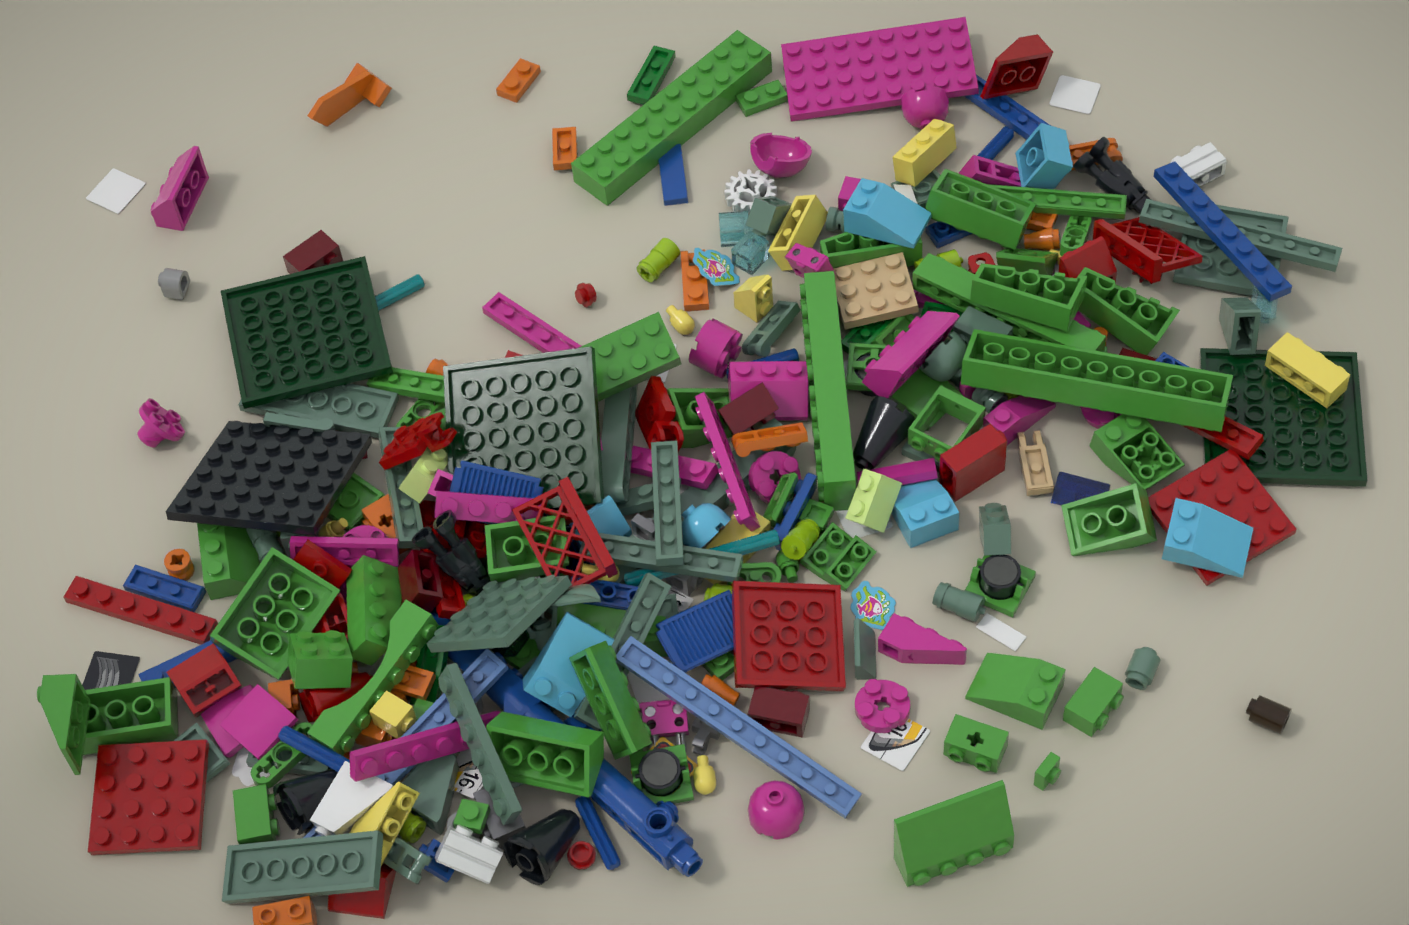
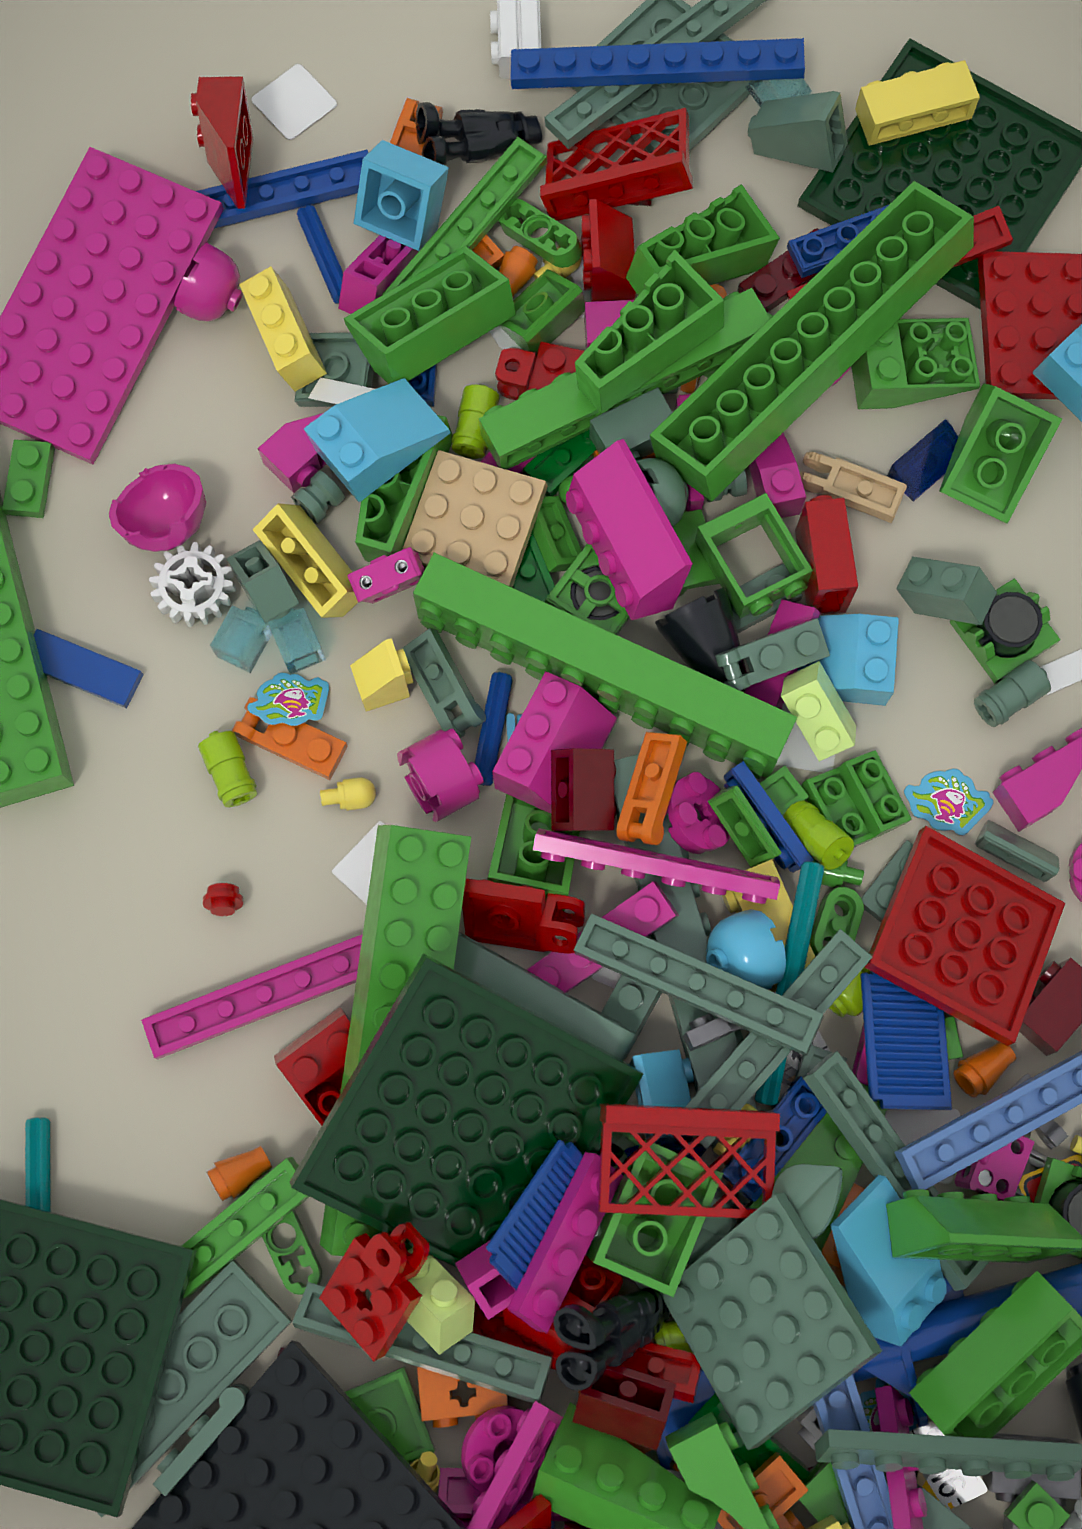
camera: 65 degrees left, 20 degrees up
(890, 460) = (774, 654): none -> sand green plate

